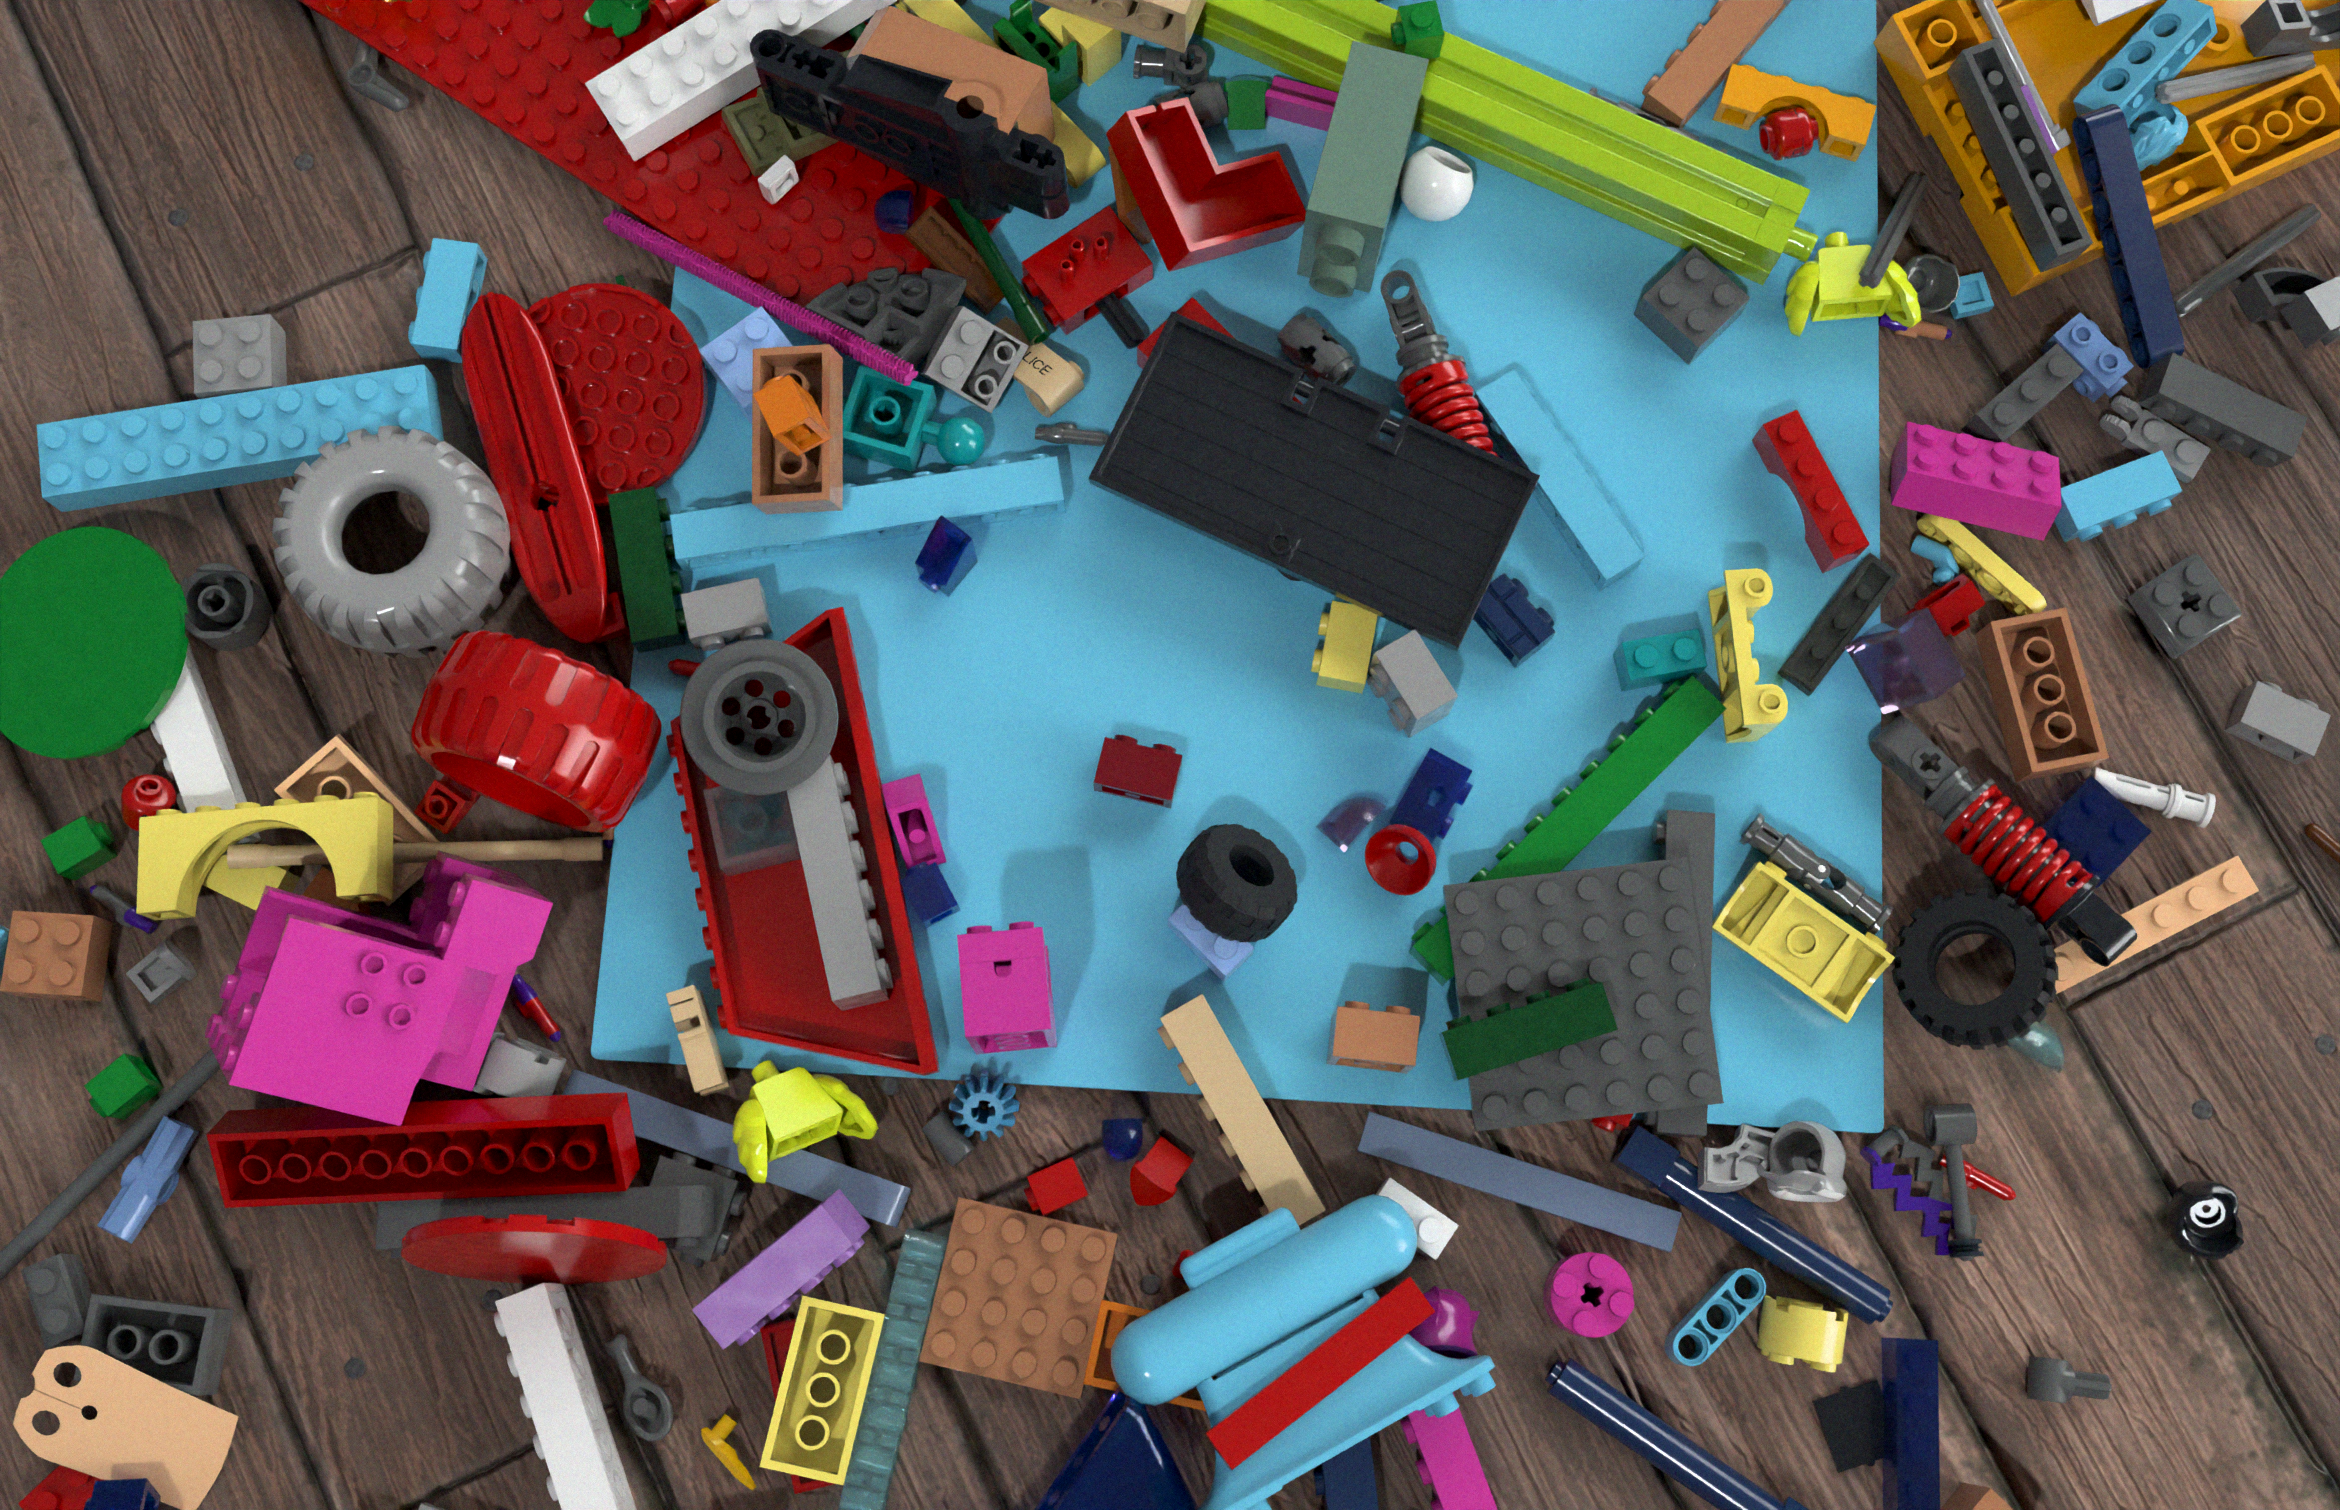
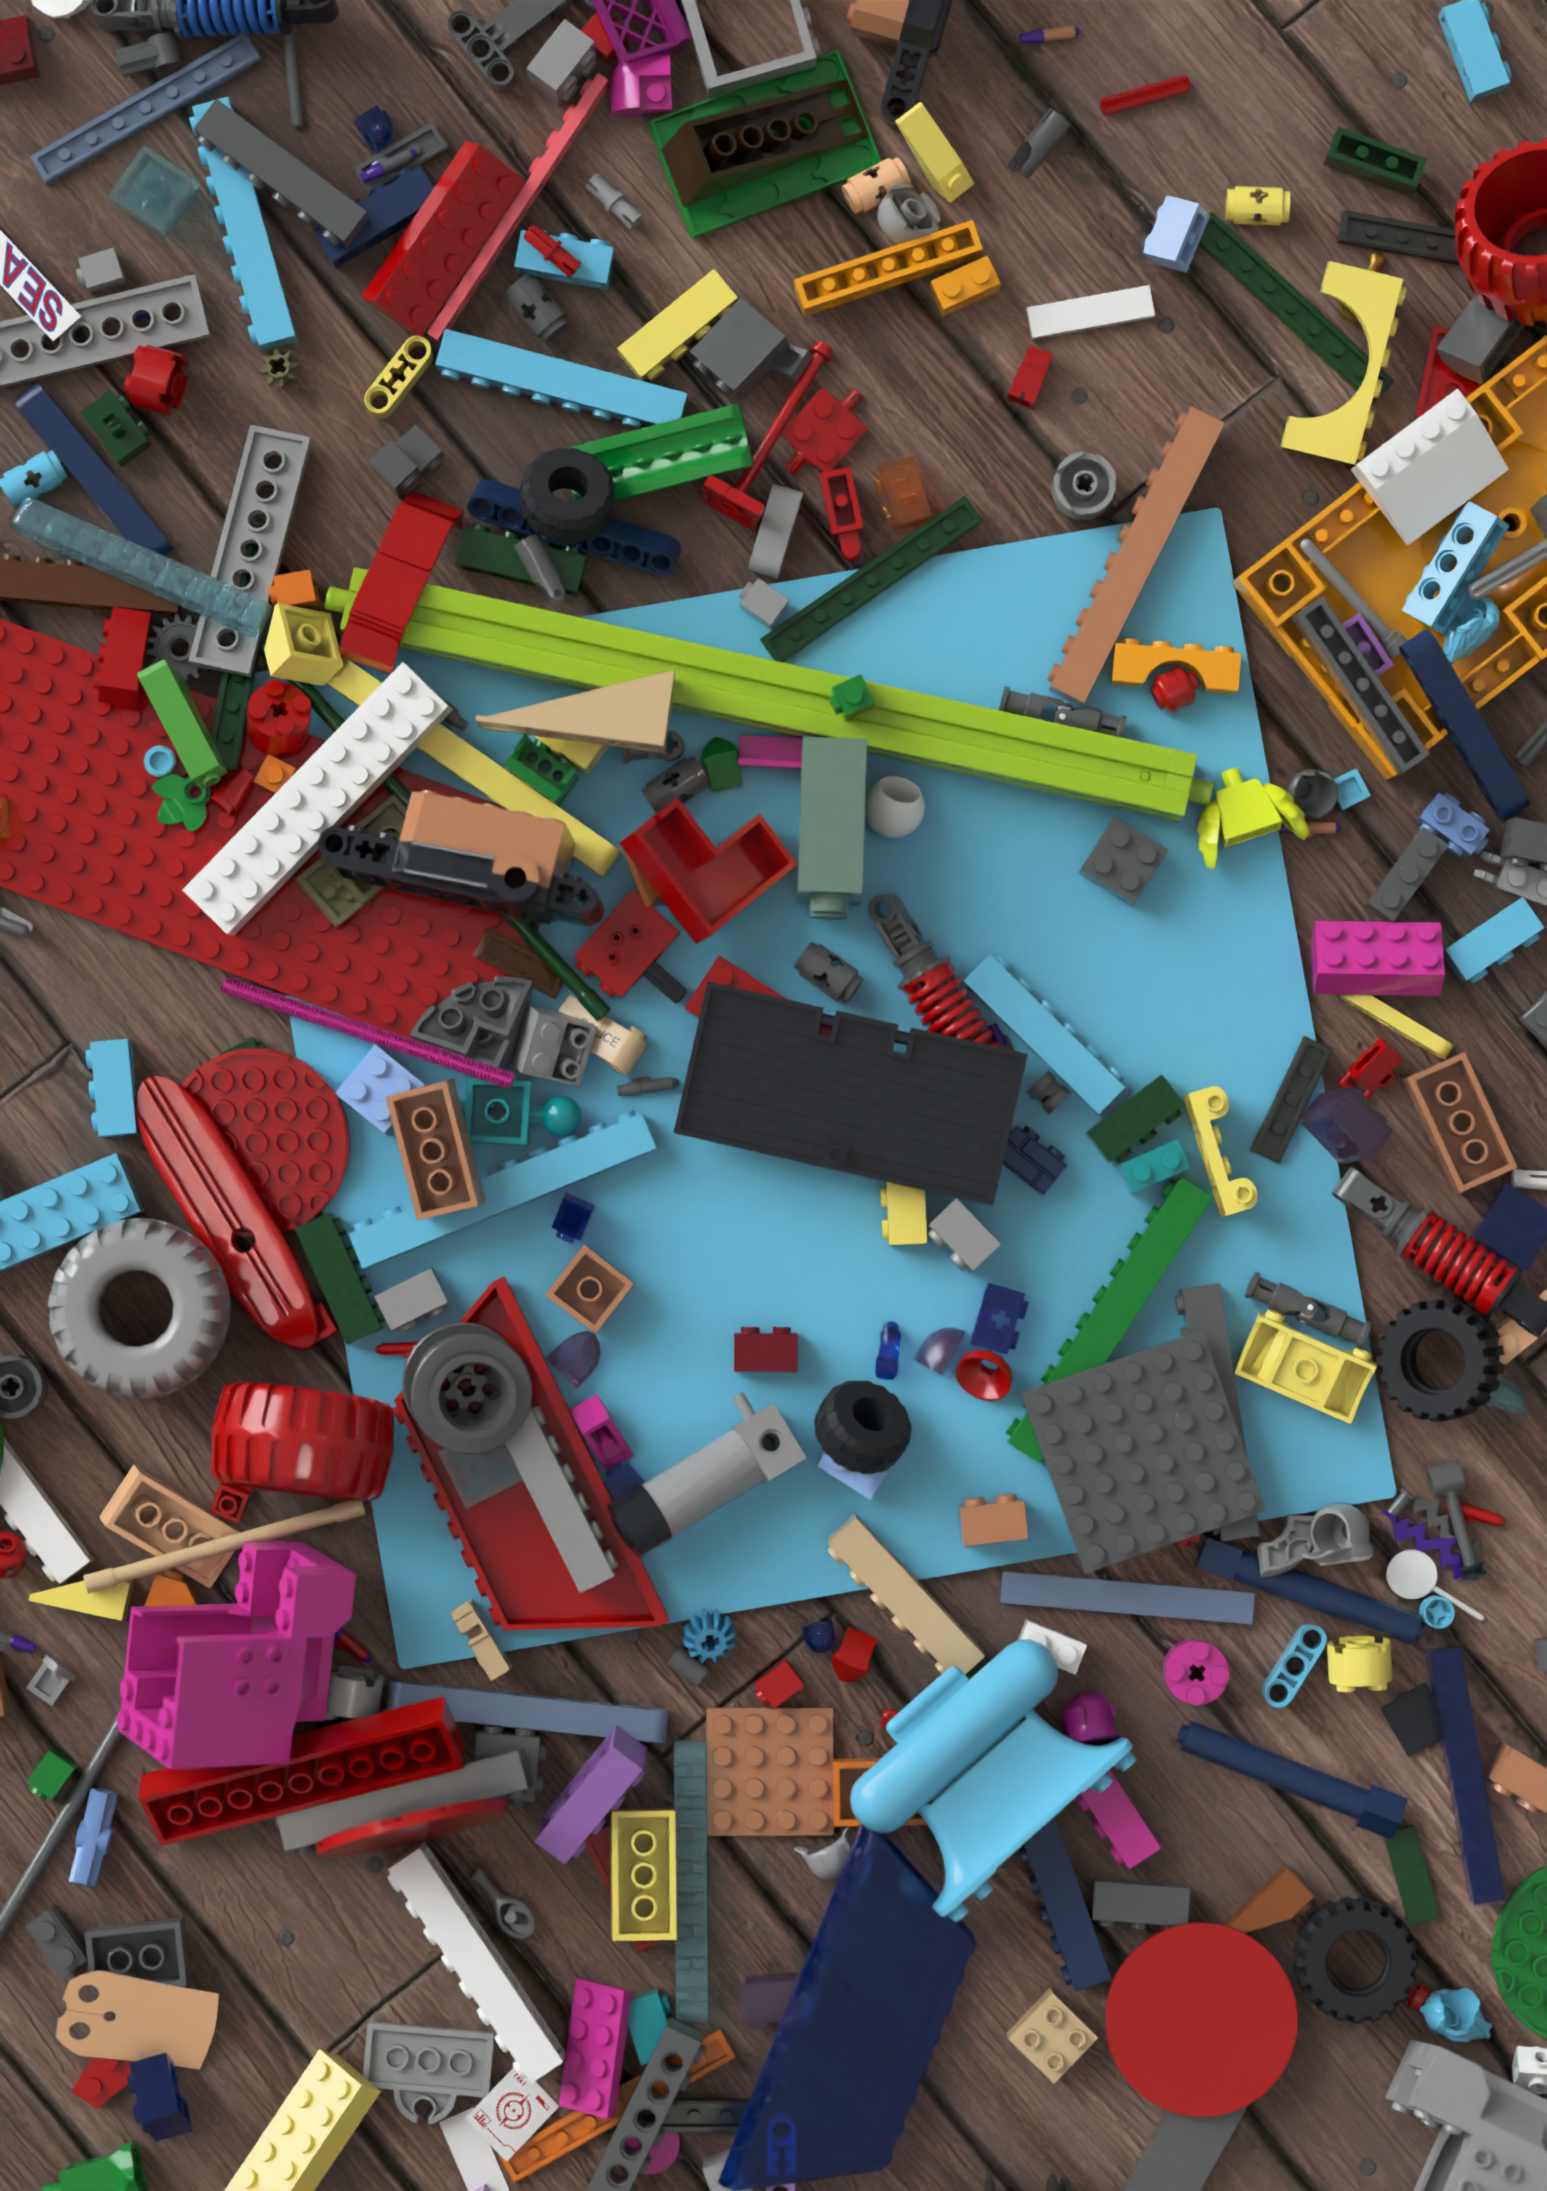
camera: 10 degrees left, 10 degrees up
(182, 847) = (48, 1587): light yellow arch -> none
(724, 1452) = (579, 1934): yellow bar -> none
(778, 179) = (358, 929): white tile -> none
(792, 415) = (436, 1152): orange brick -> none
(793, 1113) = (566, 1677): neon yellow torso -> none
(894, 211) = (459, 935): clear blue piece -> none
(907, 727) = (576, 1357): none -> clear purple brick
(943, 646) = (590, 1289): none -> nougat brick
(1006, 988) = (713, 1570): dark pink piece -> none
(1051, 892) = (706, 1479): none -> light grey piece
(1065, 1429) = (829, 1862): none -> light grey hair
(1286, 812) = (888, 1356): none -> clear blue piece
(1319, 1373) = (1006, 1781): red tile -> none
(1527, 1030) = (1106, 1494): dark green brick -> none
(1549, 547) = (1049, 1092): none -> dark grey wheel
(1647, 601) = (1136, 1120): none -> dark green brick
(1828, 520) = (1248, 997): red arch -> none
(1888, 1239) = (1414, 1575): none -> white piece
(1893, 231) = (1274, 759): dark grey axle -> none
(1919, 1291) = (1440, 1615): none -> medium azure wheel
(1941, 557) = (1361, 1021): medium azure arm -> none

